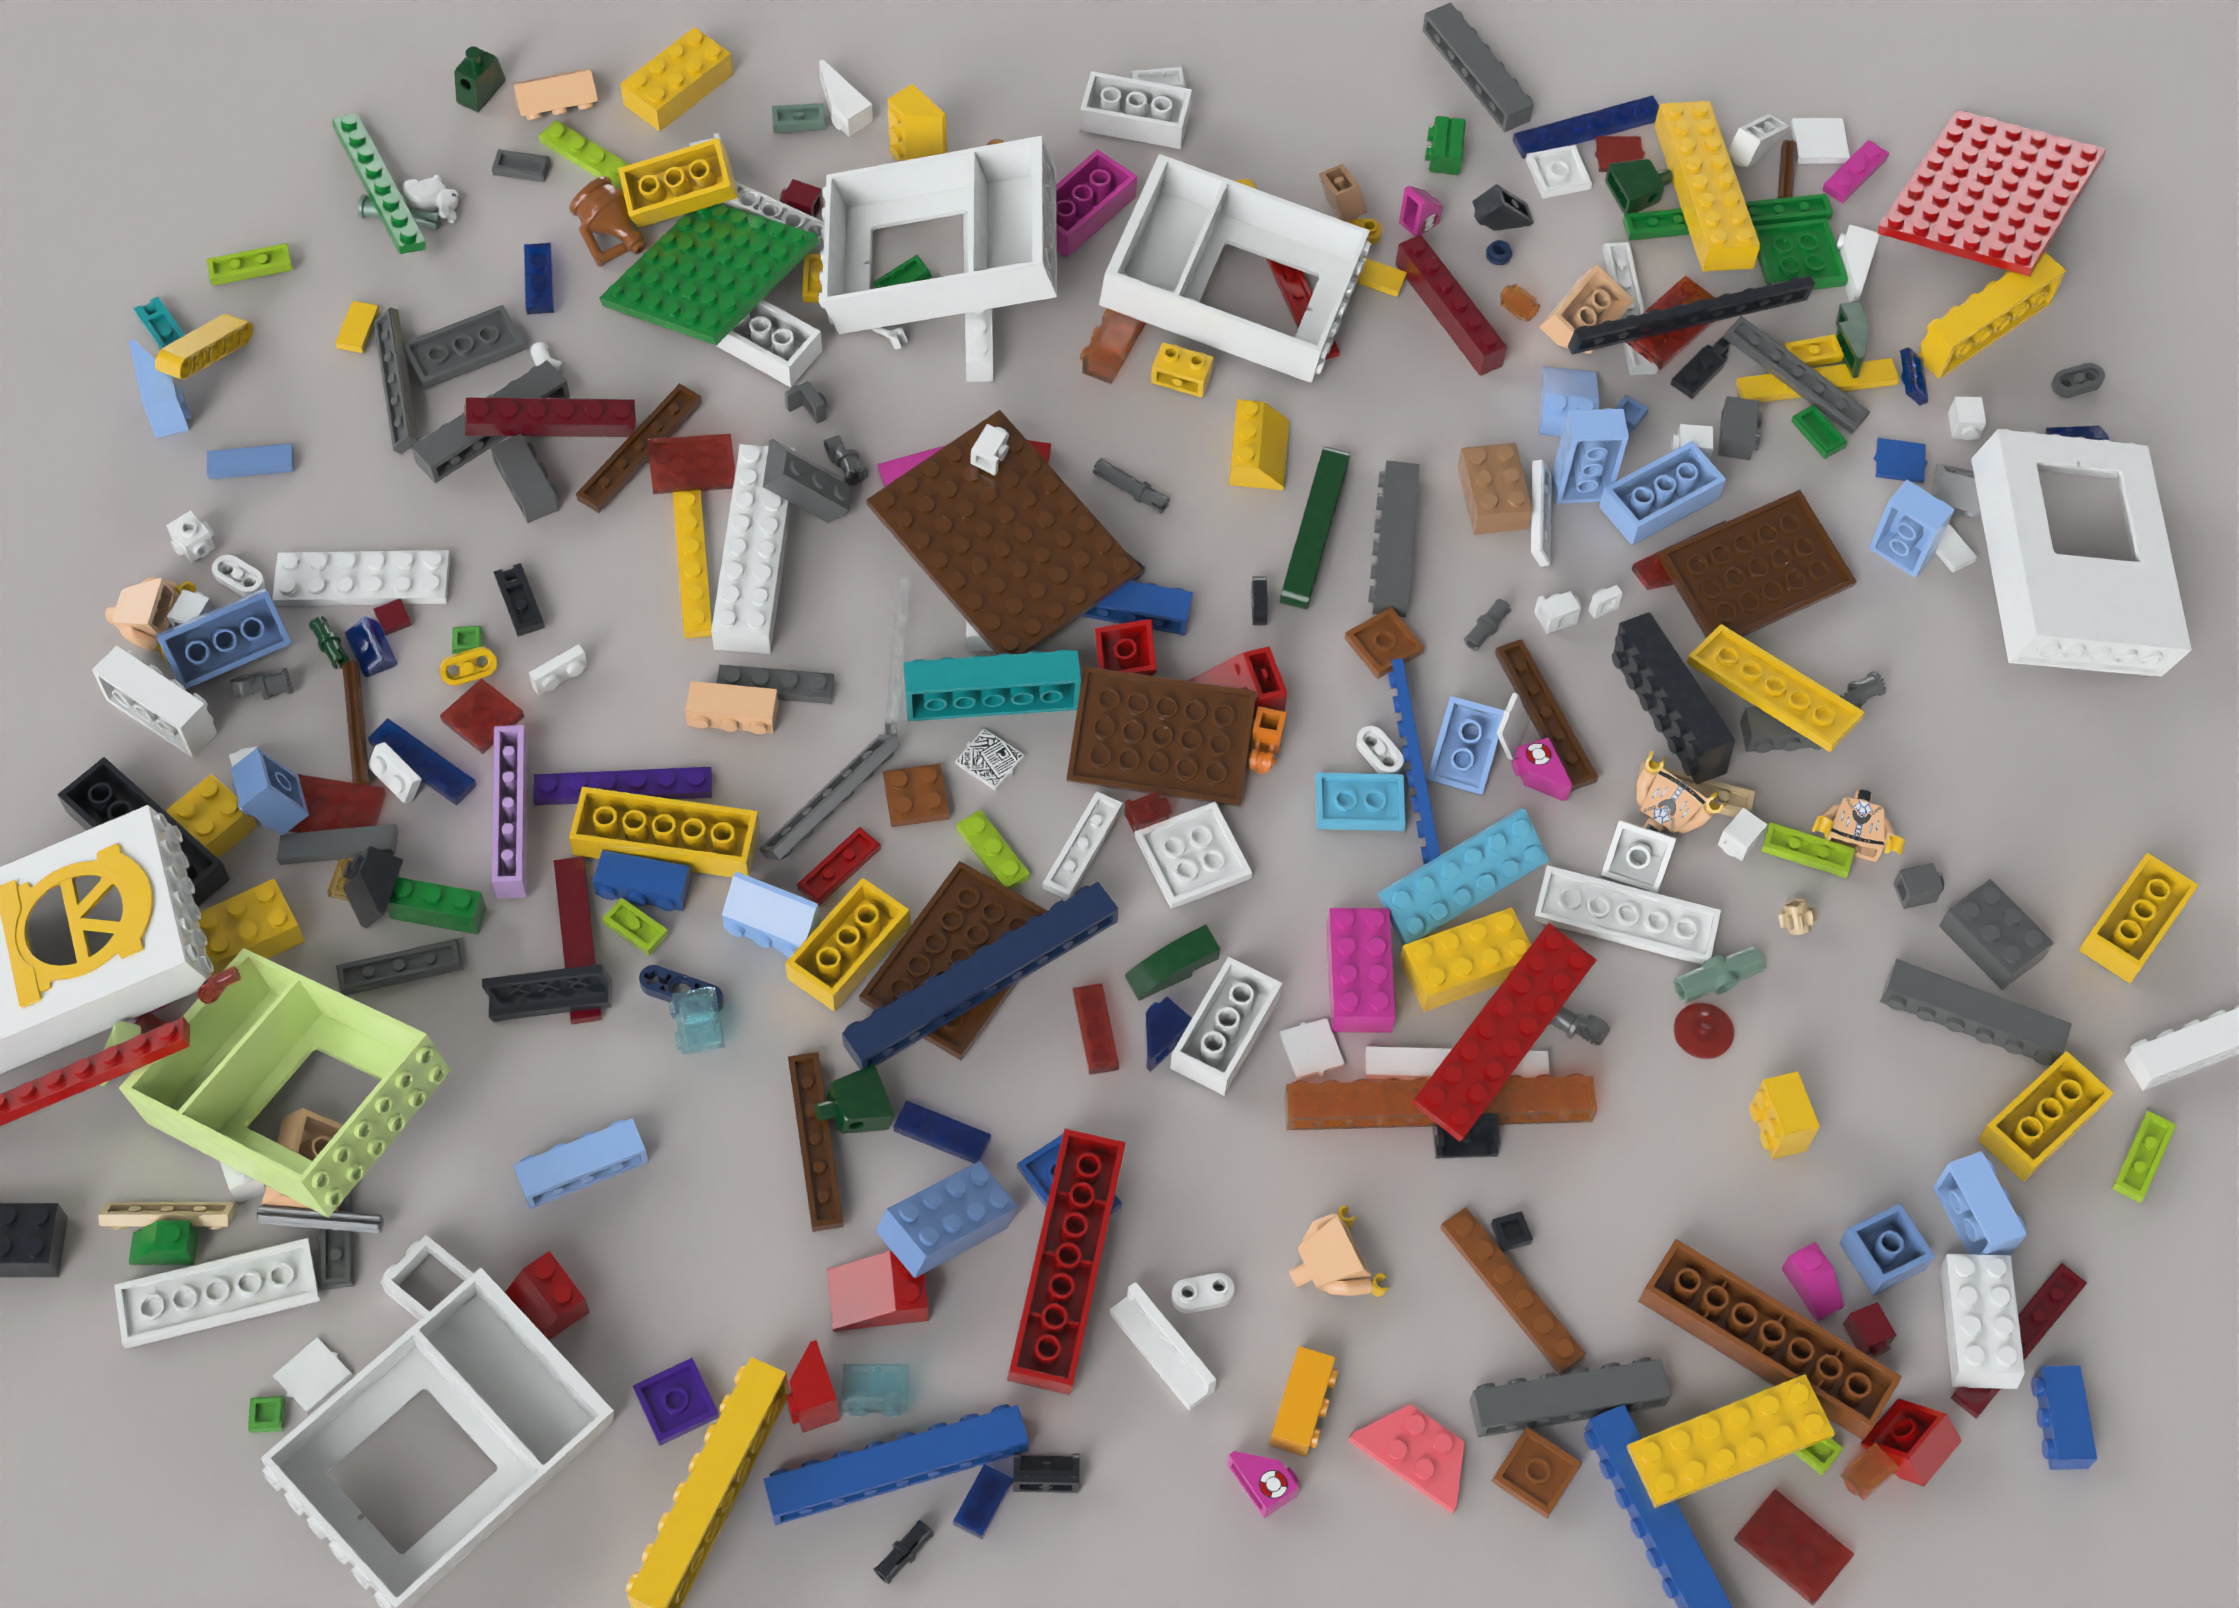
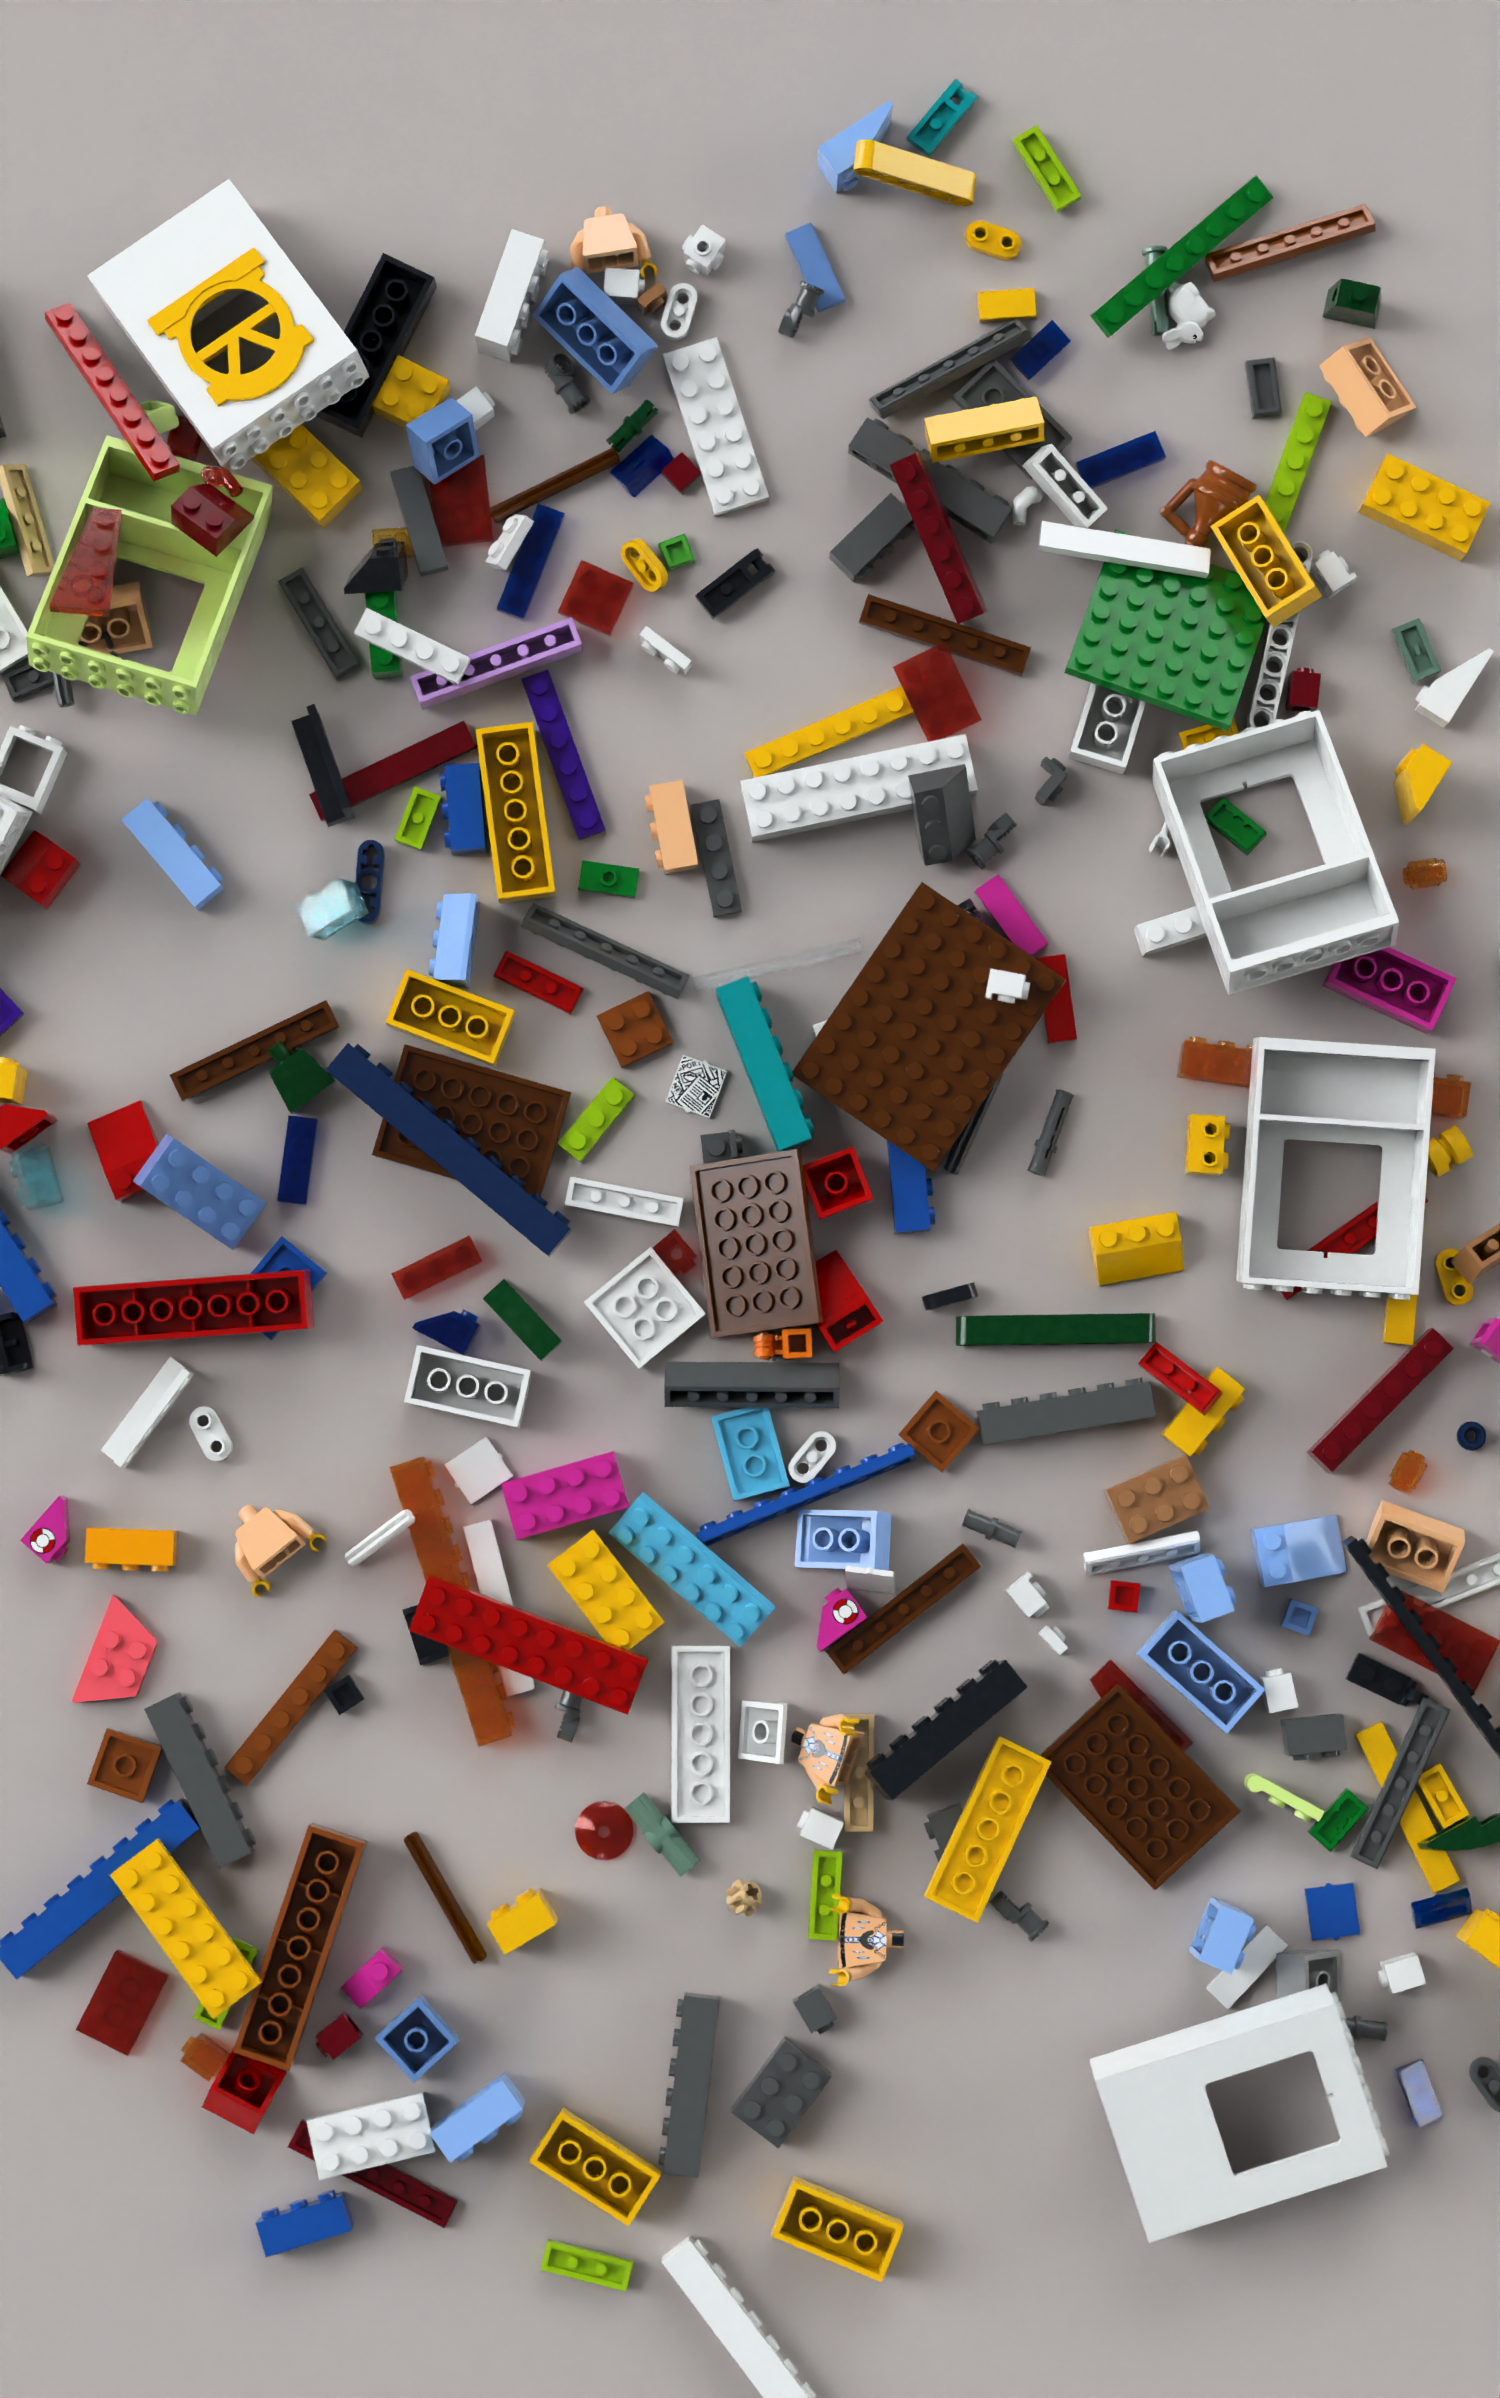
camera: 75 degrees right, 25 degrees up
(216, 591) = (652, 299): none -> medium nougat plate
(254, 1000) = (209, 517): none -> dark red slope
(260, 1112) = (90, 572): none -> clear red wing
(284, 474) = (804, 304): none -> dark grey connector
(296, 319) = (992, 241): none -> yellow plate
(403, 111) = (1290, 242): none -> dark orange plate
(411, 310) = (1040, 350): none -> clear blue plate
(463, 869) = (412, 646): none -> white plate
(465, 356) = (984, 429): none -> yellow brick
(545, 314) = (1064, 486): none -> white brick
(621, 287) = (1124, 549): none -> white tile
(760, 779) = (608, 879): none -> green plate
(1056, 749) = (721, 1146): none -> dark grey bracket
(1296, 779) = (752, 1384): none -> dark grey brick
(1358, 1148) = (380, 1537): none -> white axle
(1389, 439) = (1180, 1378): none -> red tile
(1423, 435) = (1191, 1427): none -> yellow brick
(1577, 538) = (1123, 1596): none -> red plate
(1742, 1192) = (445, 1897): none -> reddish brown axle
(1790, 464) = (1282, 1797): none -> yellowish green plate

